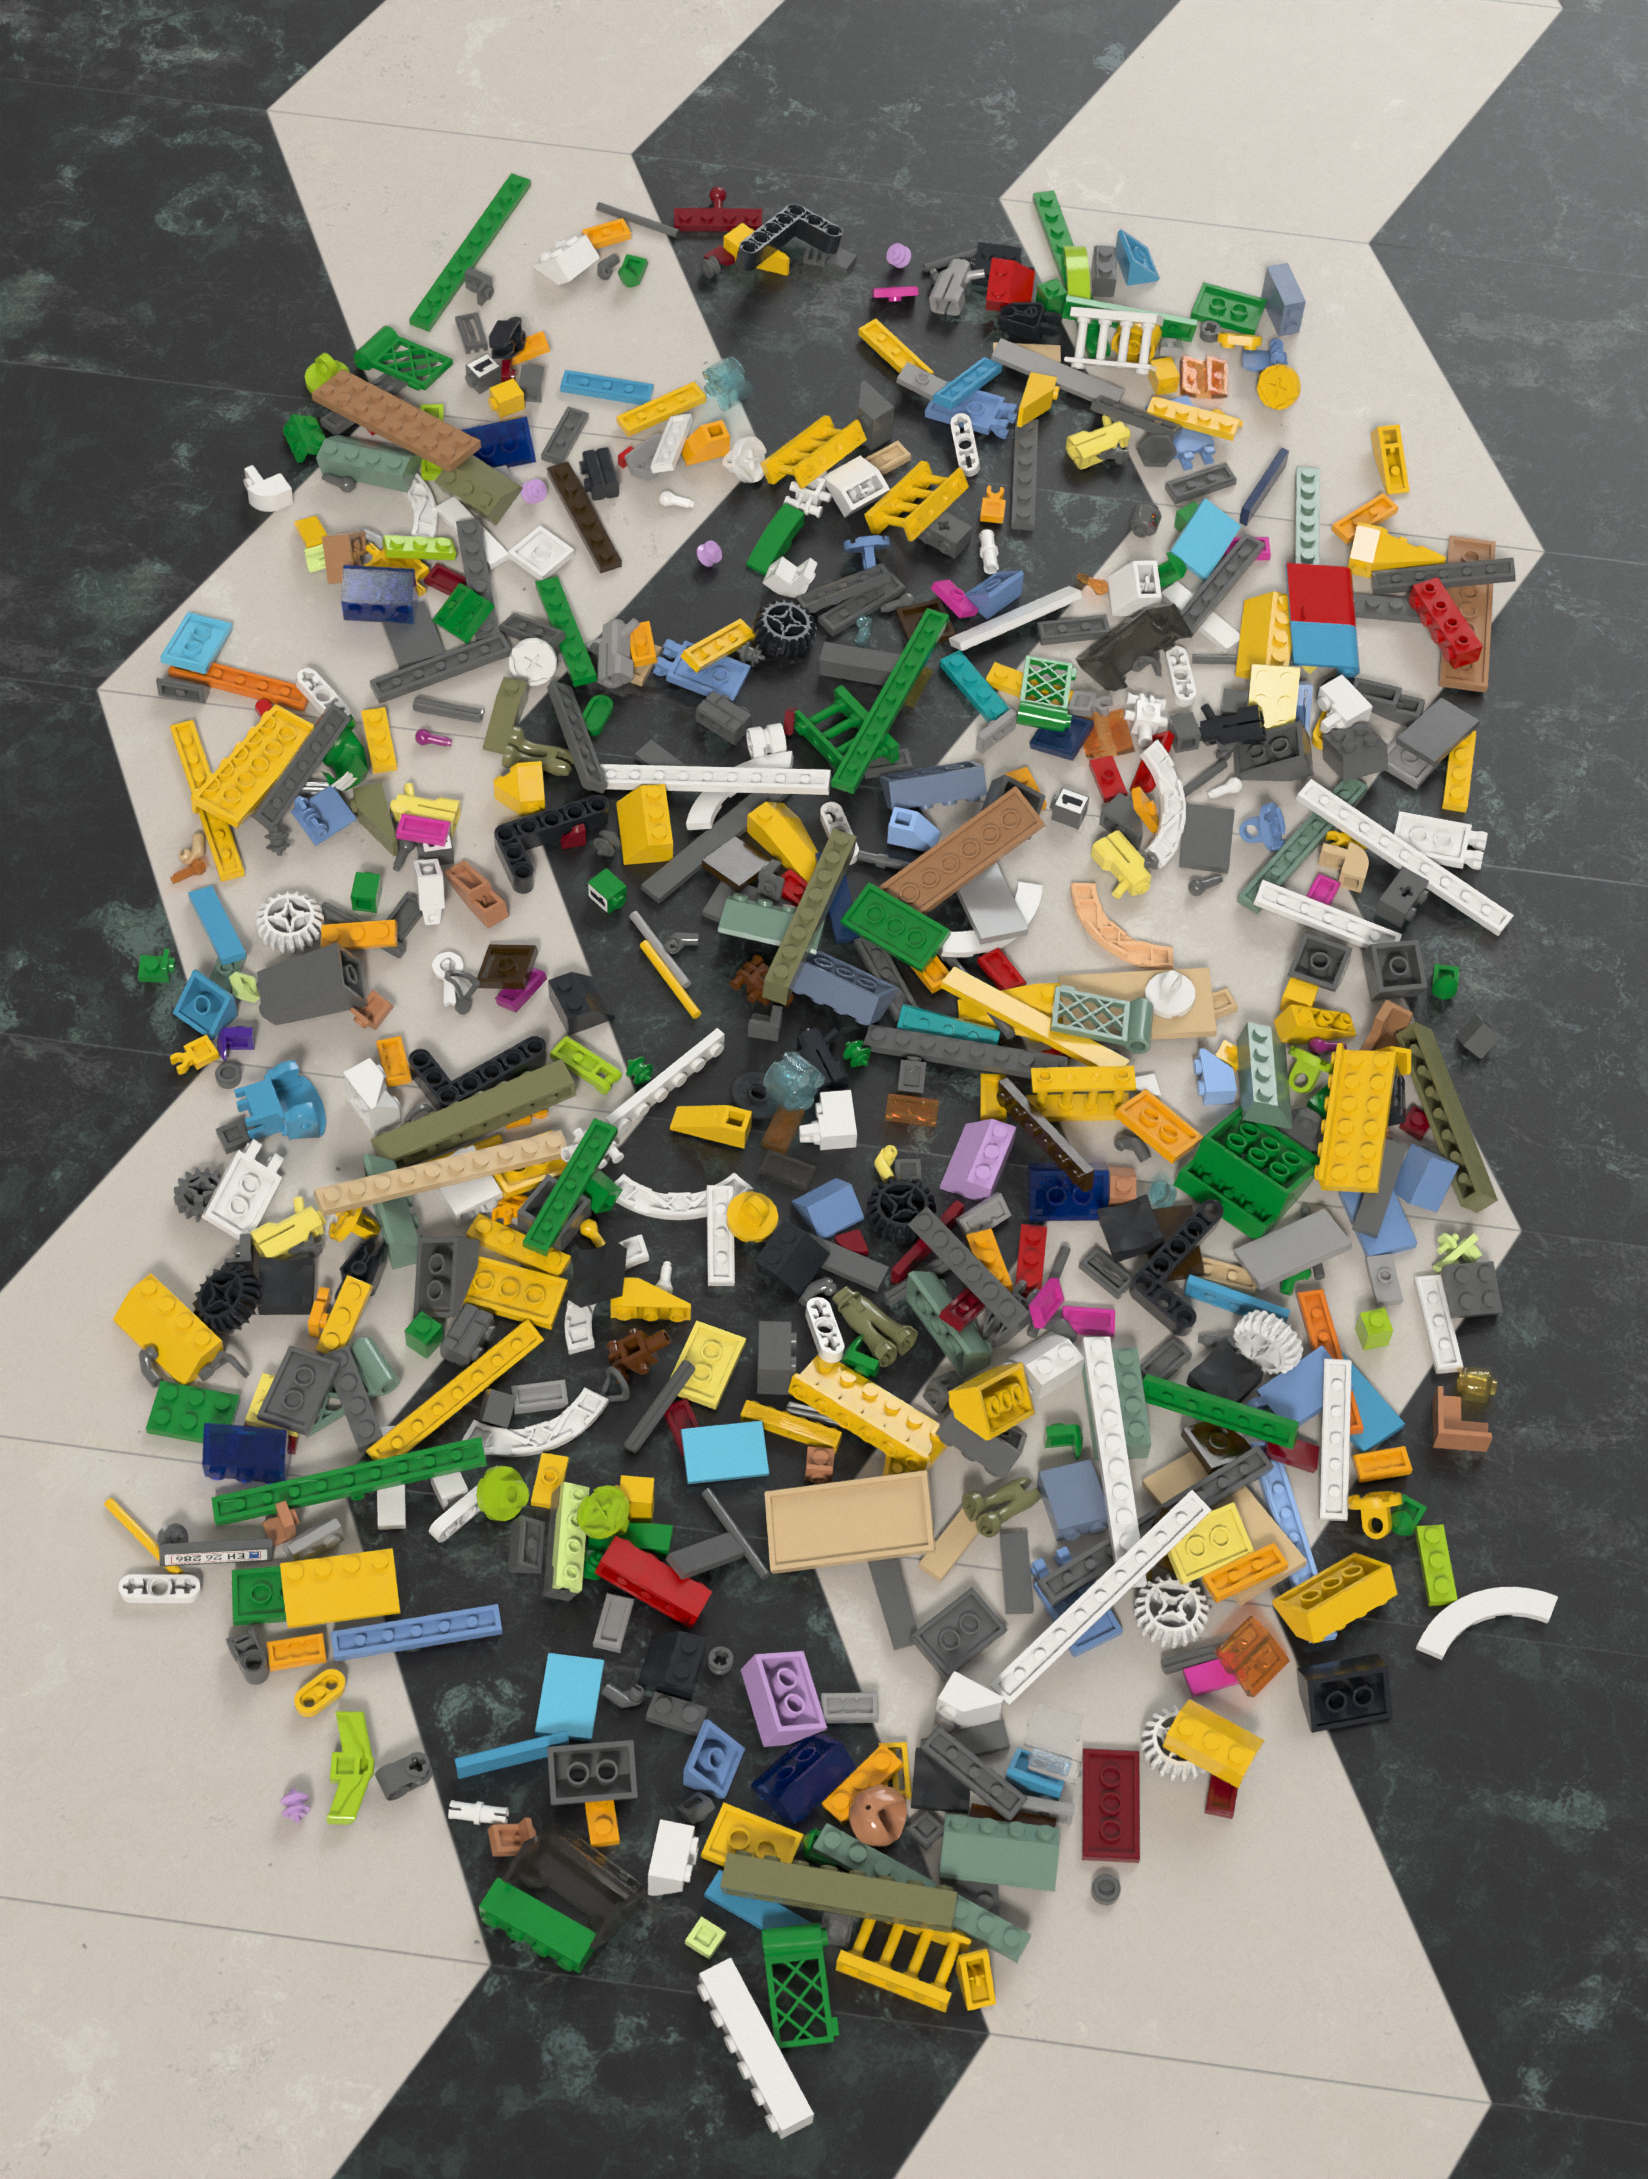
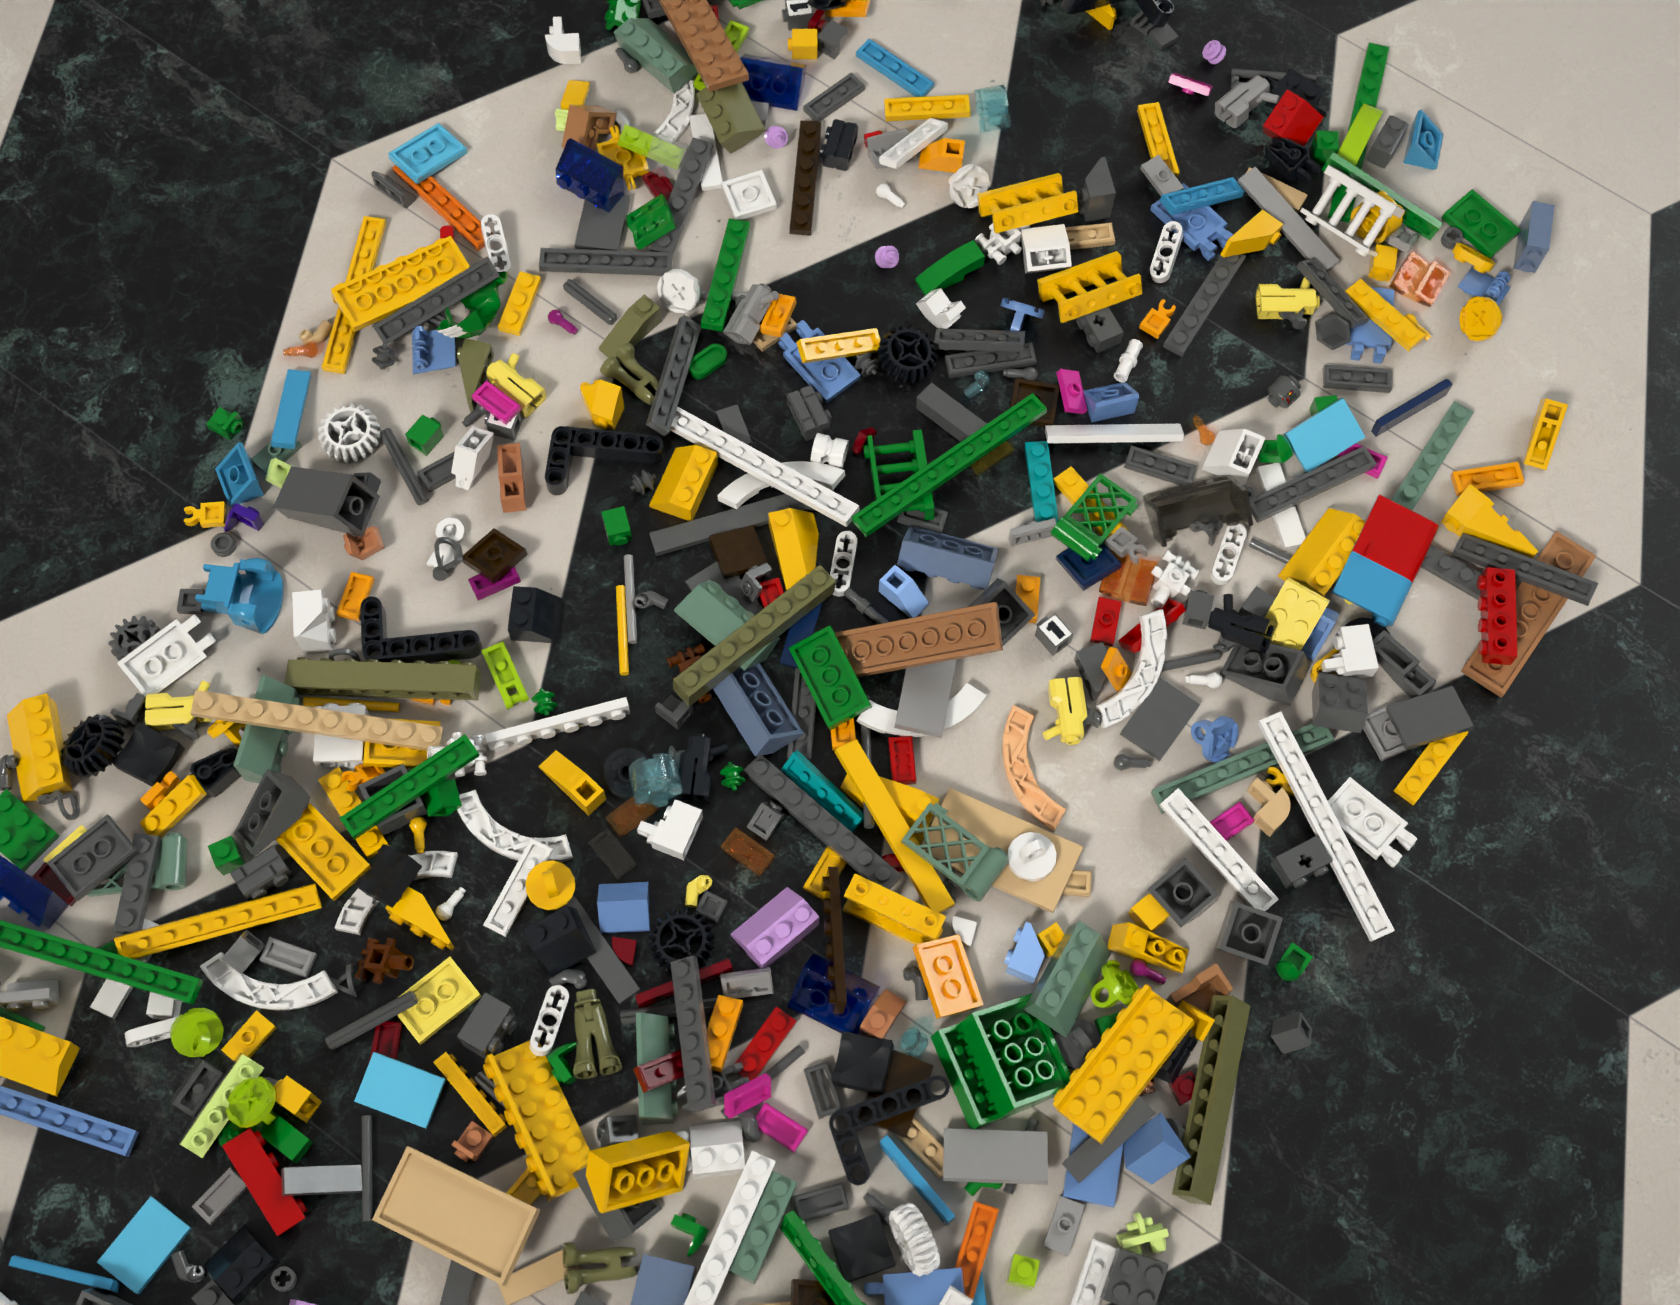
camera: 30 degrees right, 10 degrees up
(282, 1527) = (15, 967): nougat bracket -> none
(361, 934) = (394, 471): light orange plate -> none
(440, 549) = (665, 156): none -> clear piece
(523, 628) = (696, 262): dark grey tile -> none
(574, 838) = (622, 464): dark red tile -> none

